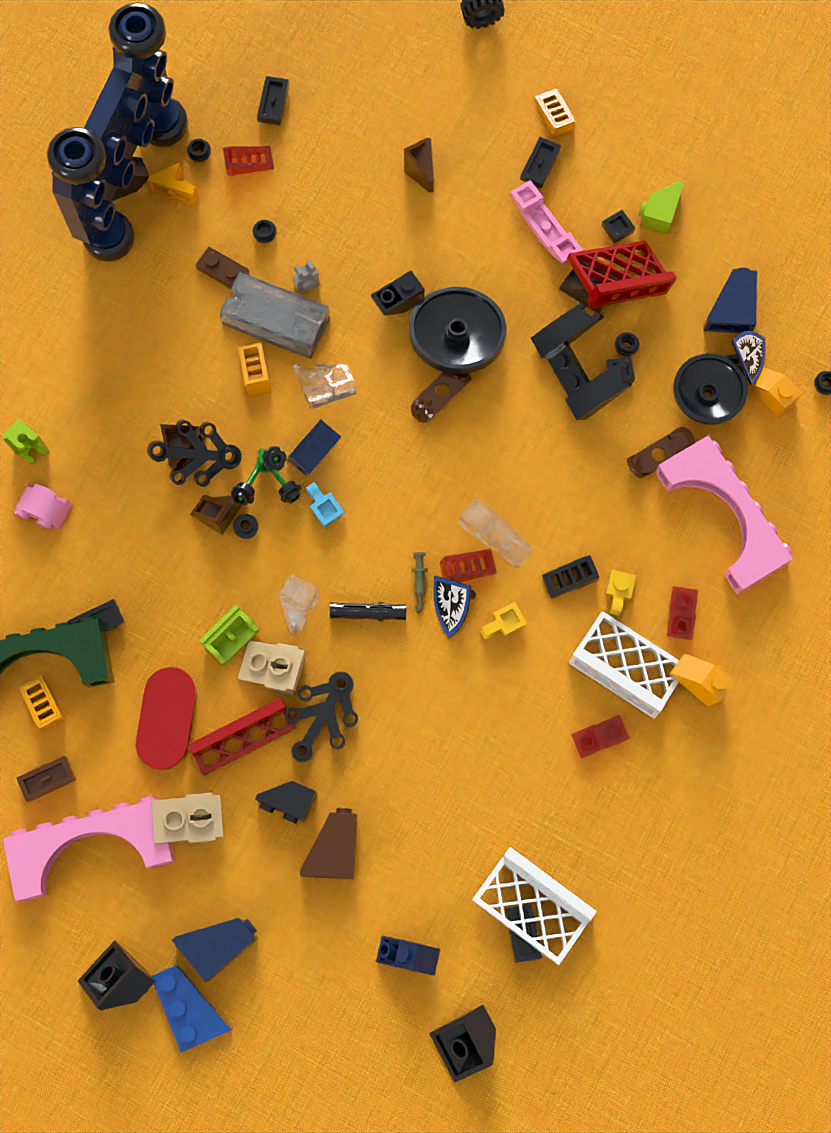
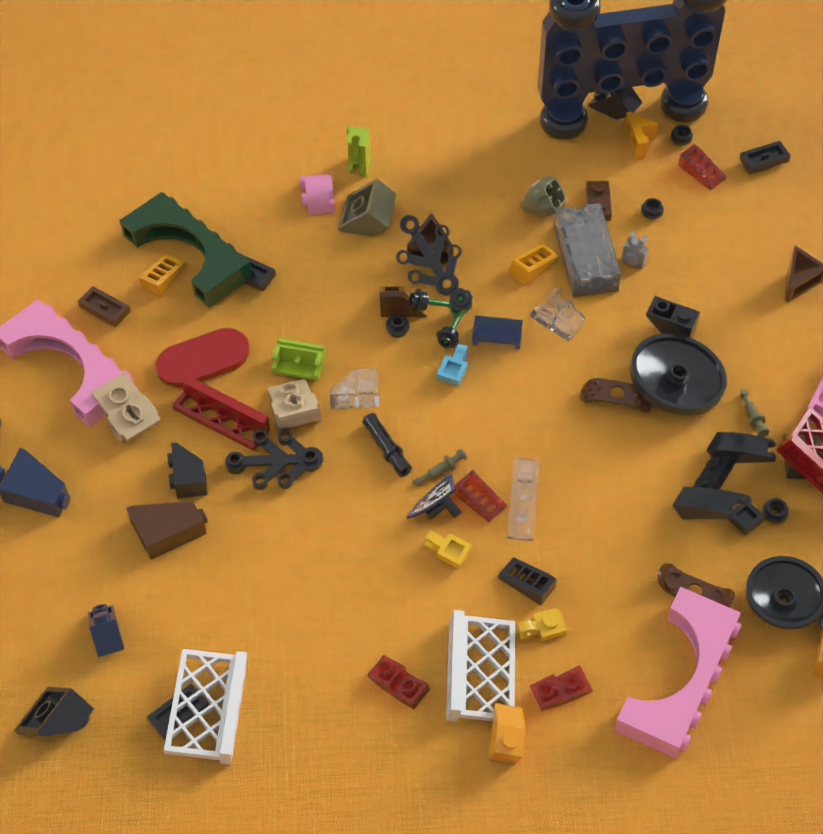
camera: 60 degrees right, 20 degrees down
(96, 475) = (368, 209): none -> olive slope
(195, 314) = (544, 197): none -> olive piece
(528, 297) = (756, 419): none -> olive piece

